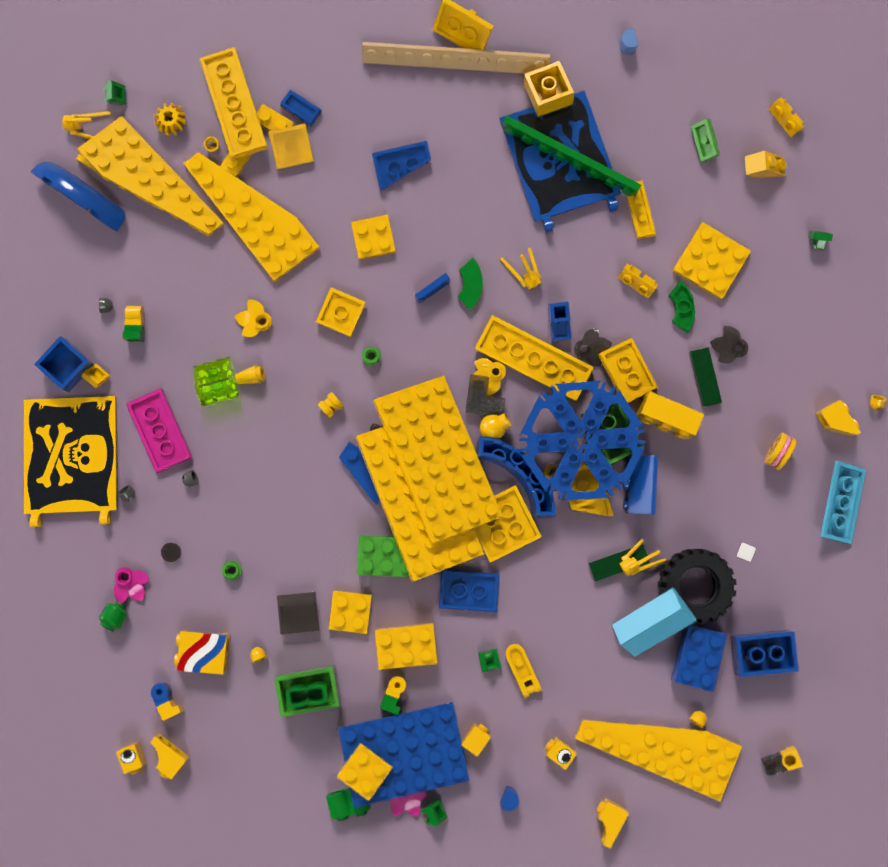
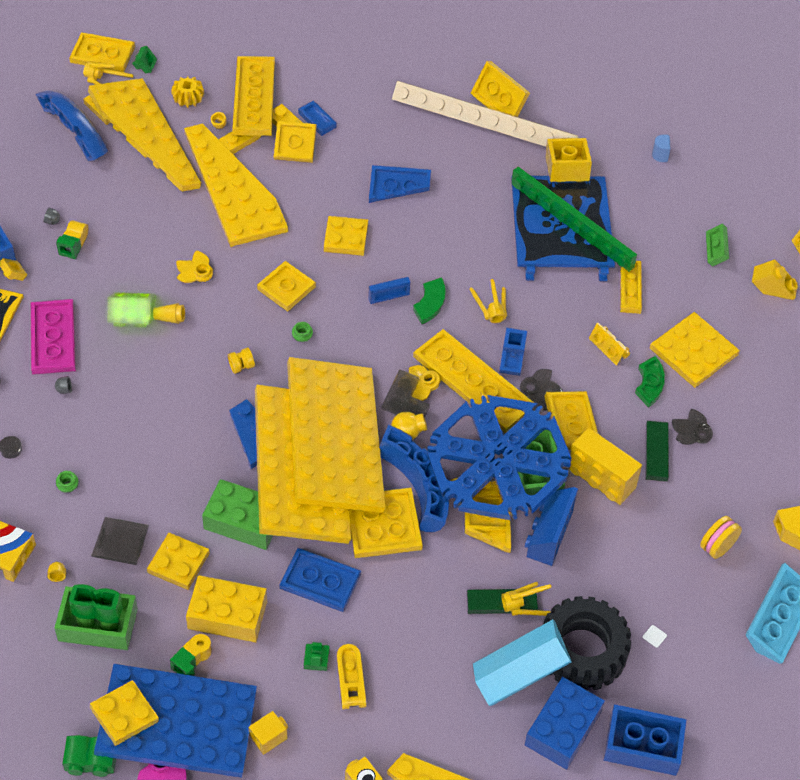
camera: 15 degrees right, 30 degrees down
(69, 94) = (102, 50): none -> yellow tile

